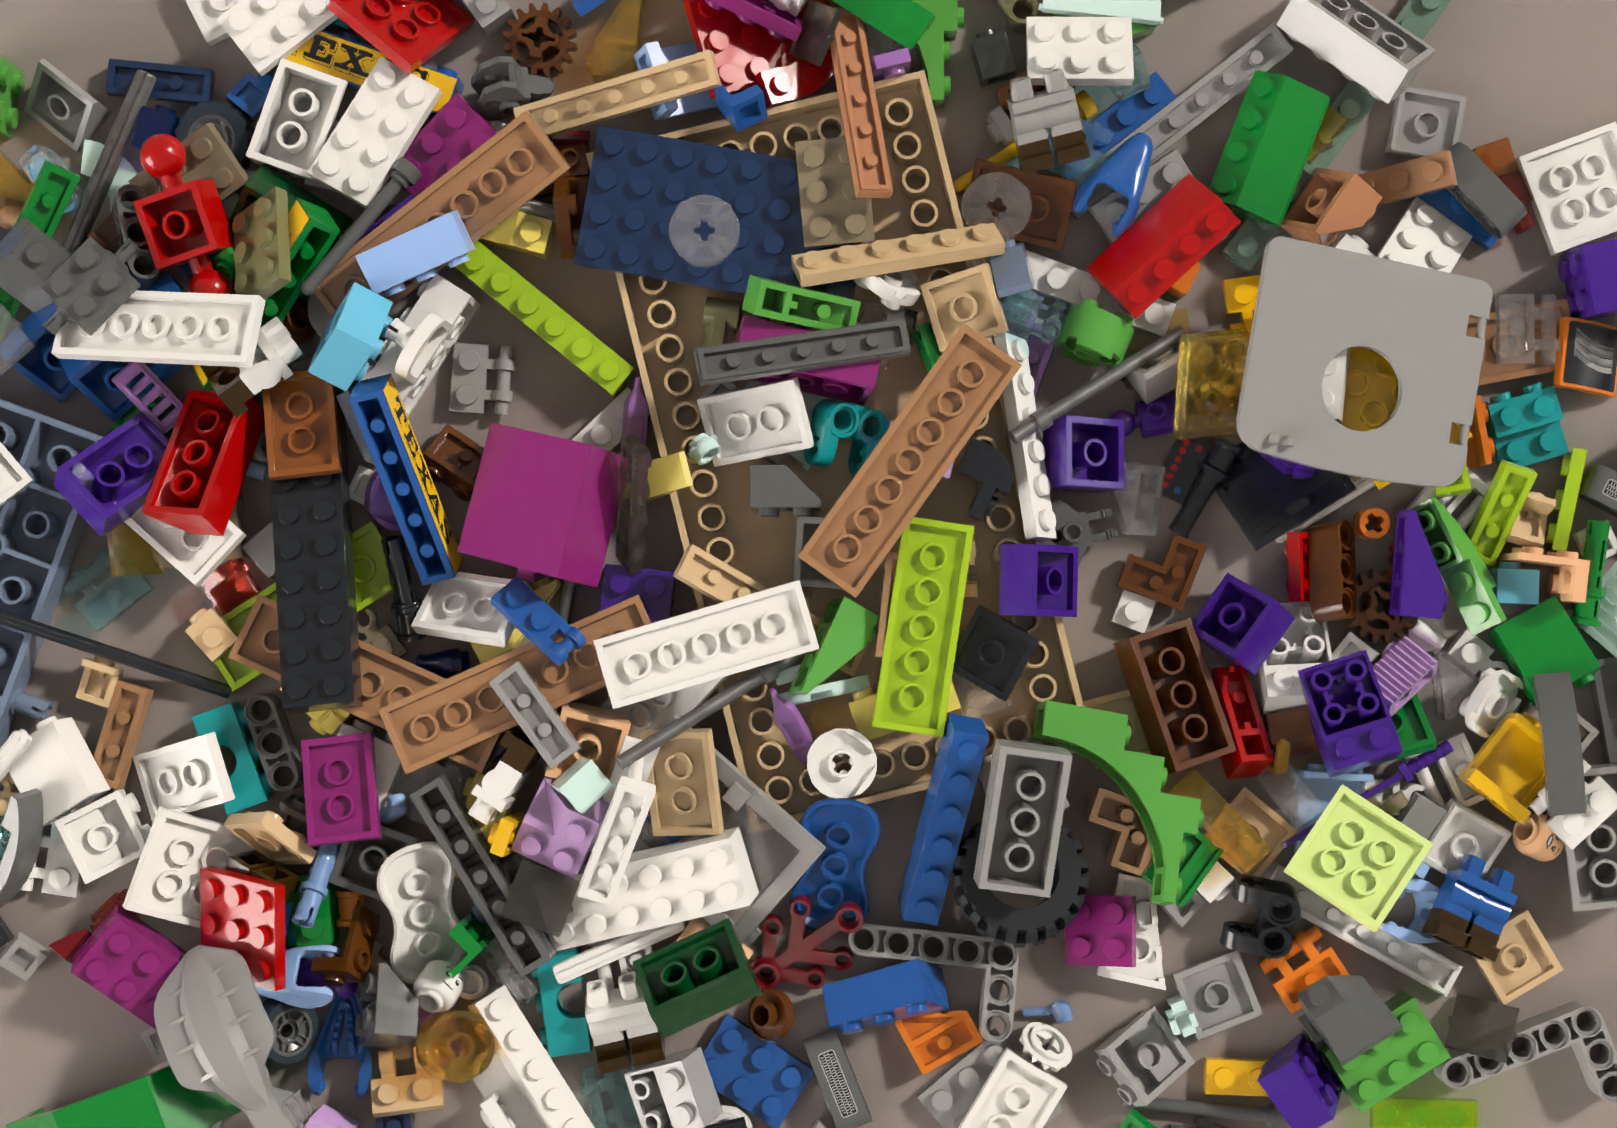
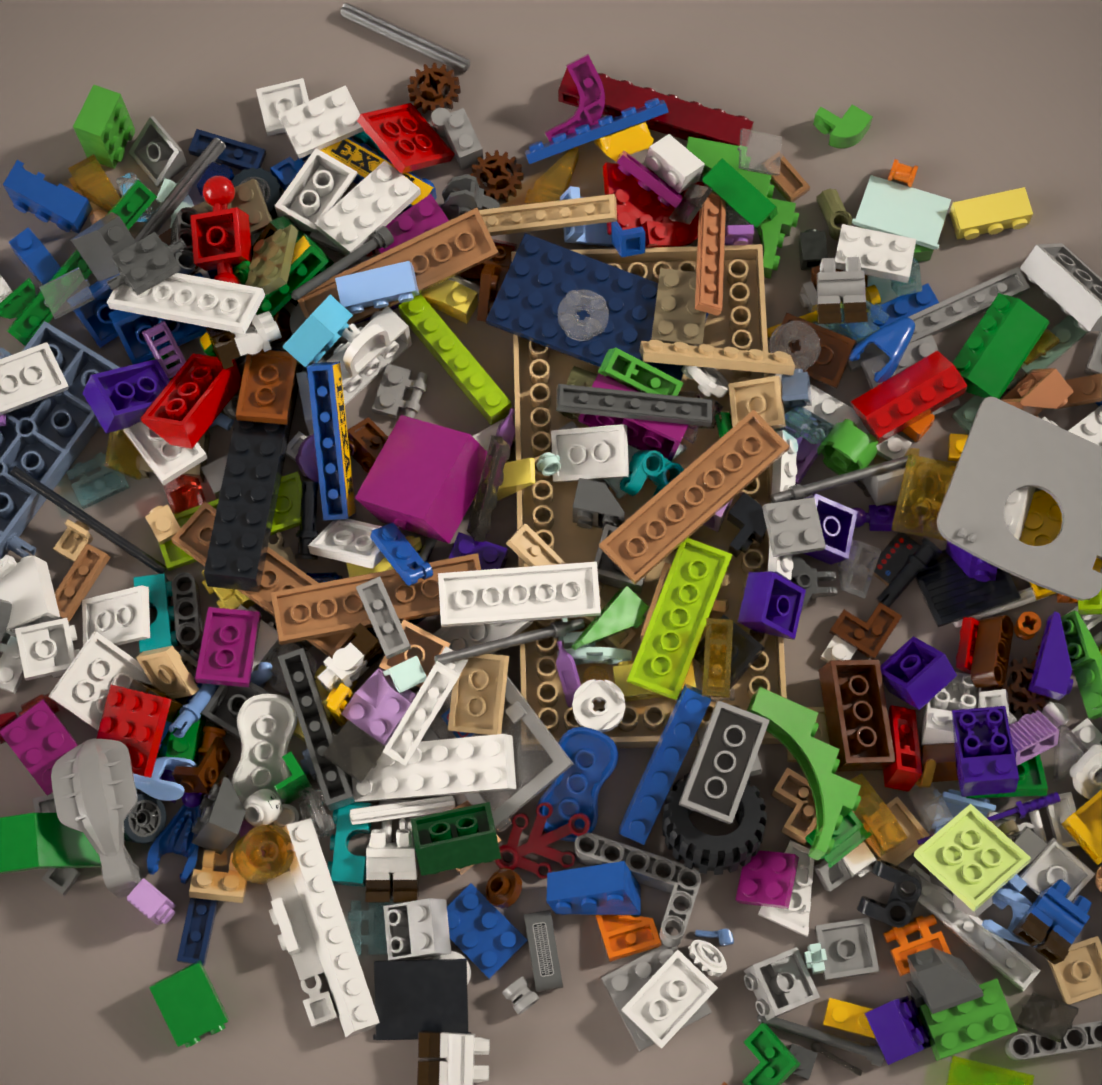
camera: 15 degrees right, 15 degrees down
(985, 679) = (717, 657): none -> clear yellow slope
(1048, 471) = (793, 527): none -> light grey plate
(1347, 640) = (994, 699): none -> white plate

